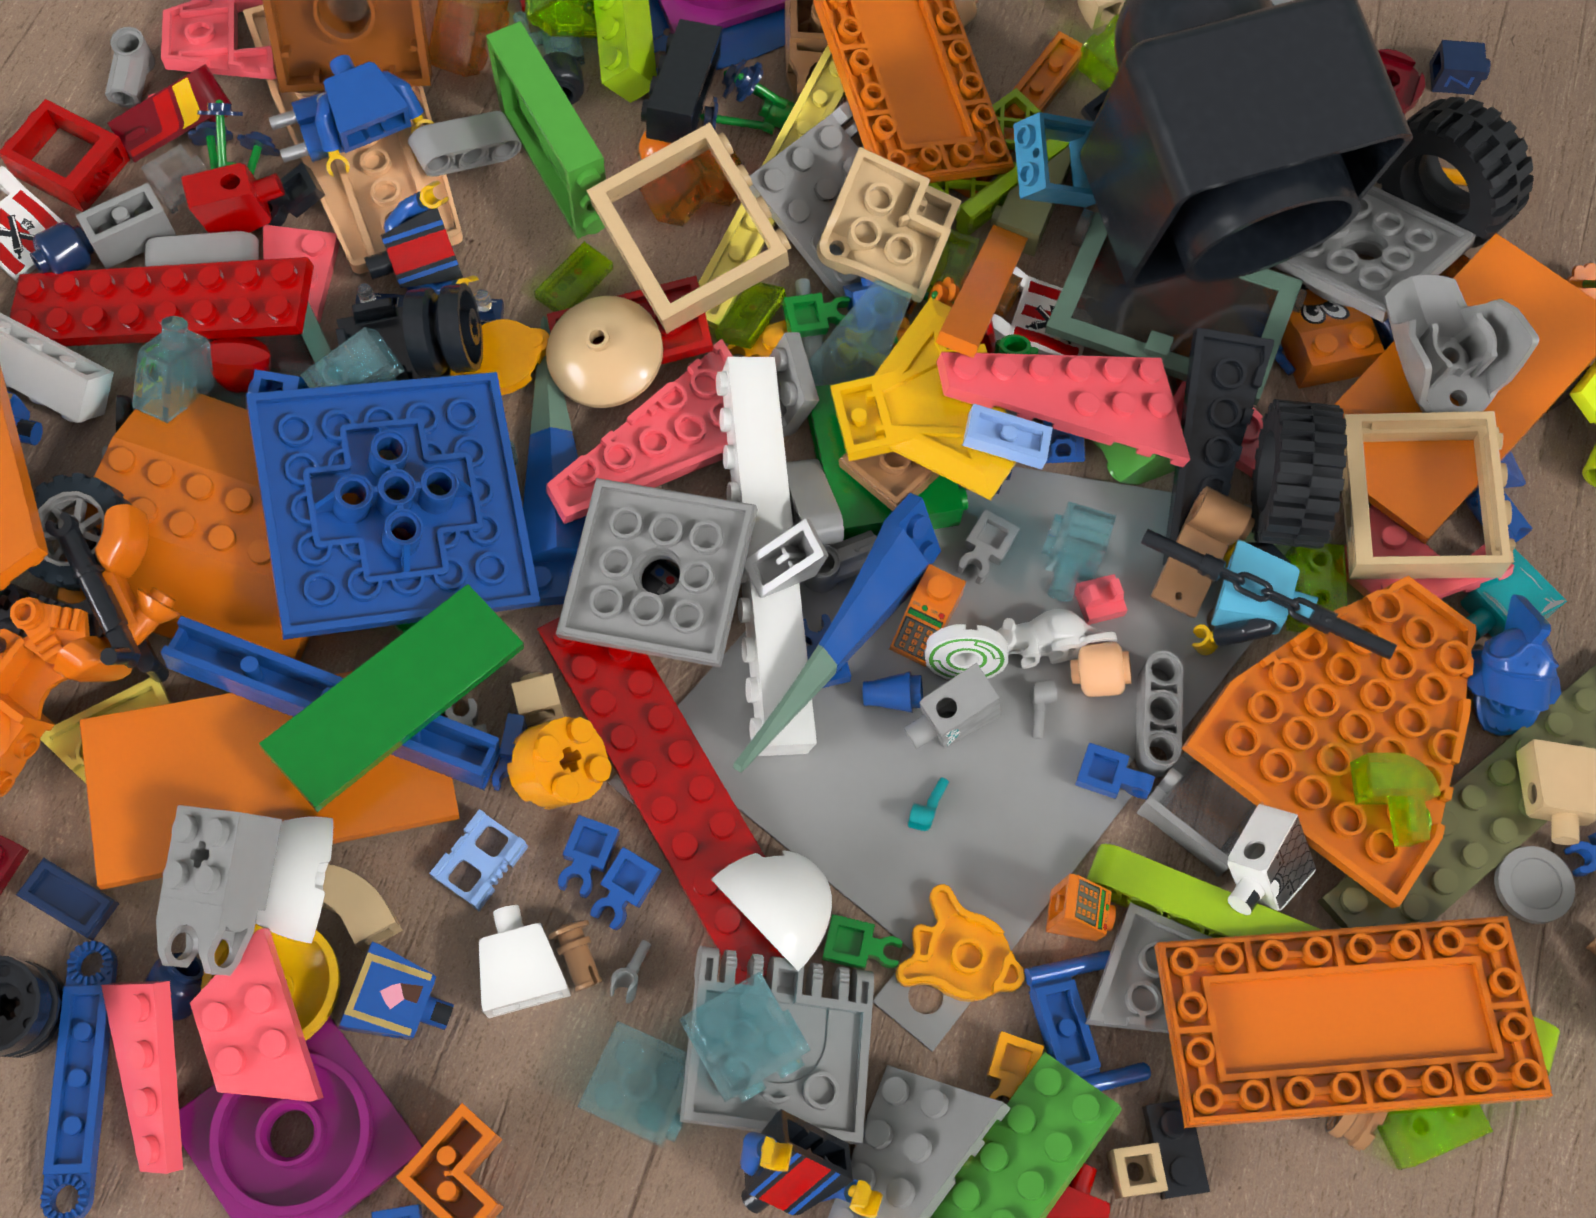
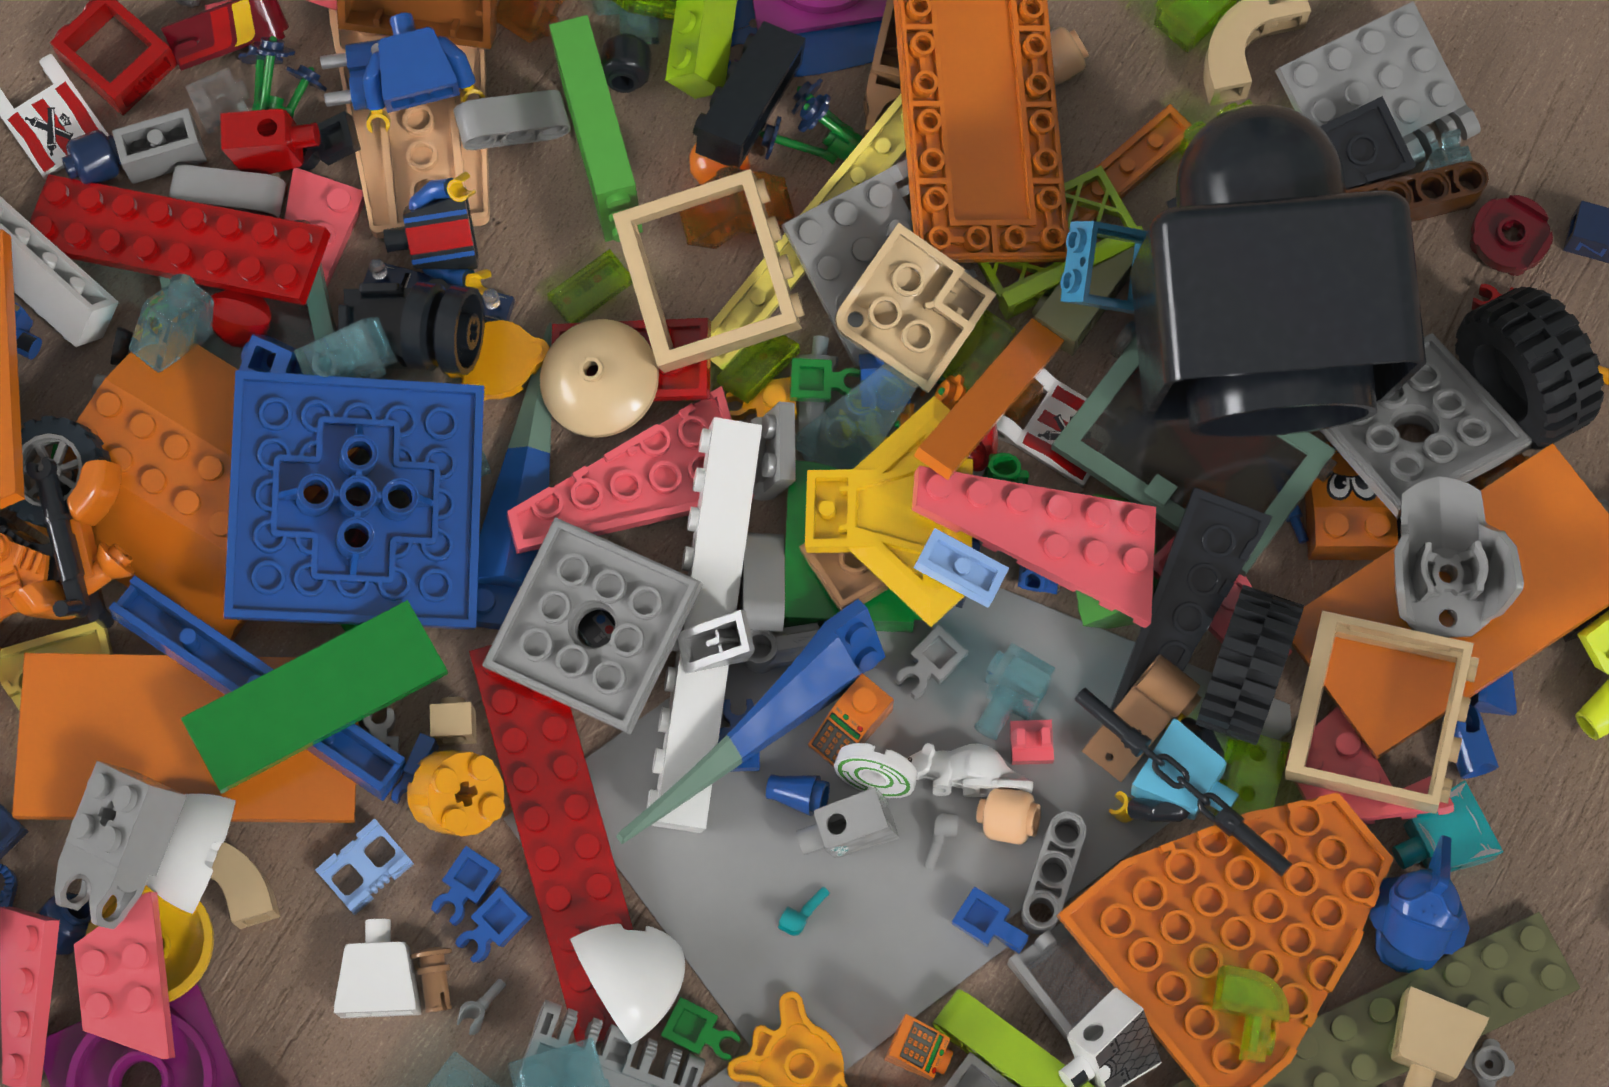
camera: 20 degrees right, 5 degrees up
(393, 997) = (257, 980): blue torso -> none

